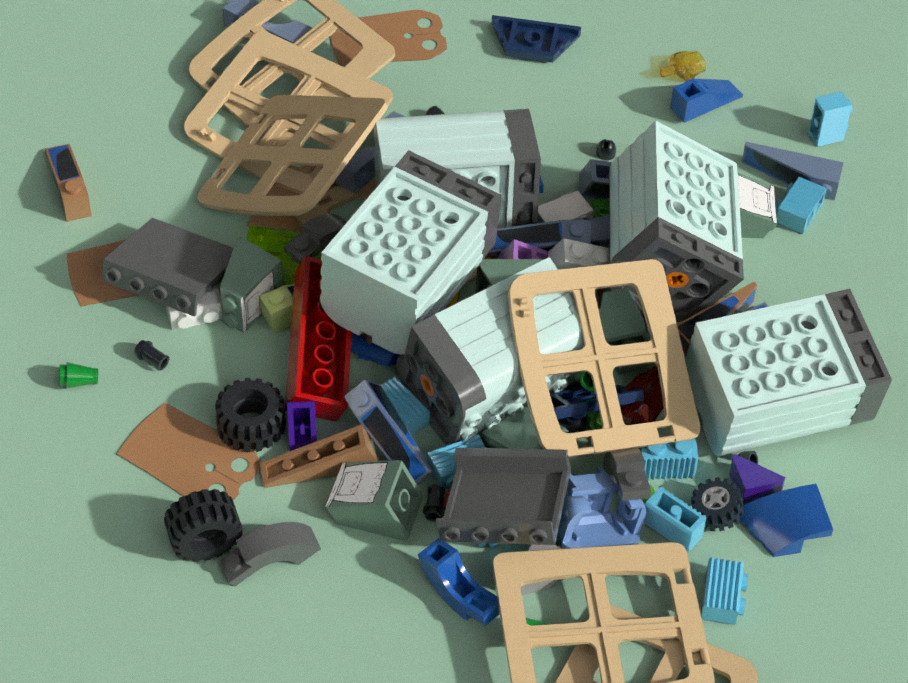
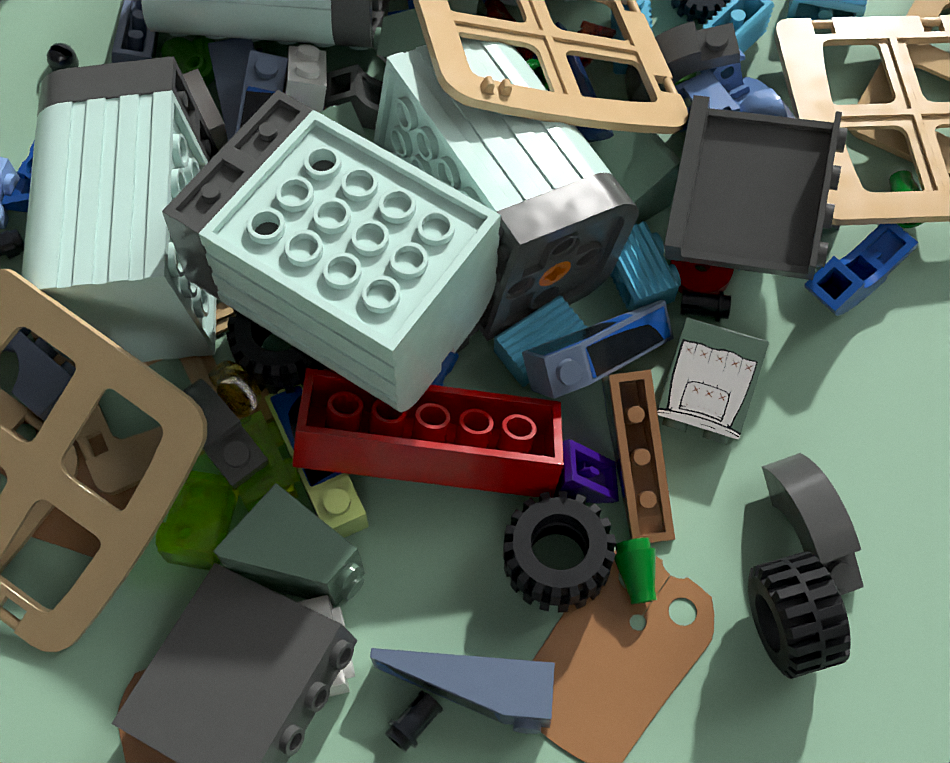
camera: 85 degrees left, 15 degrees up
(167, 385) = (495, 687): none -> sand blue slope
(240, 459) = (637, 568): none -> green cone

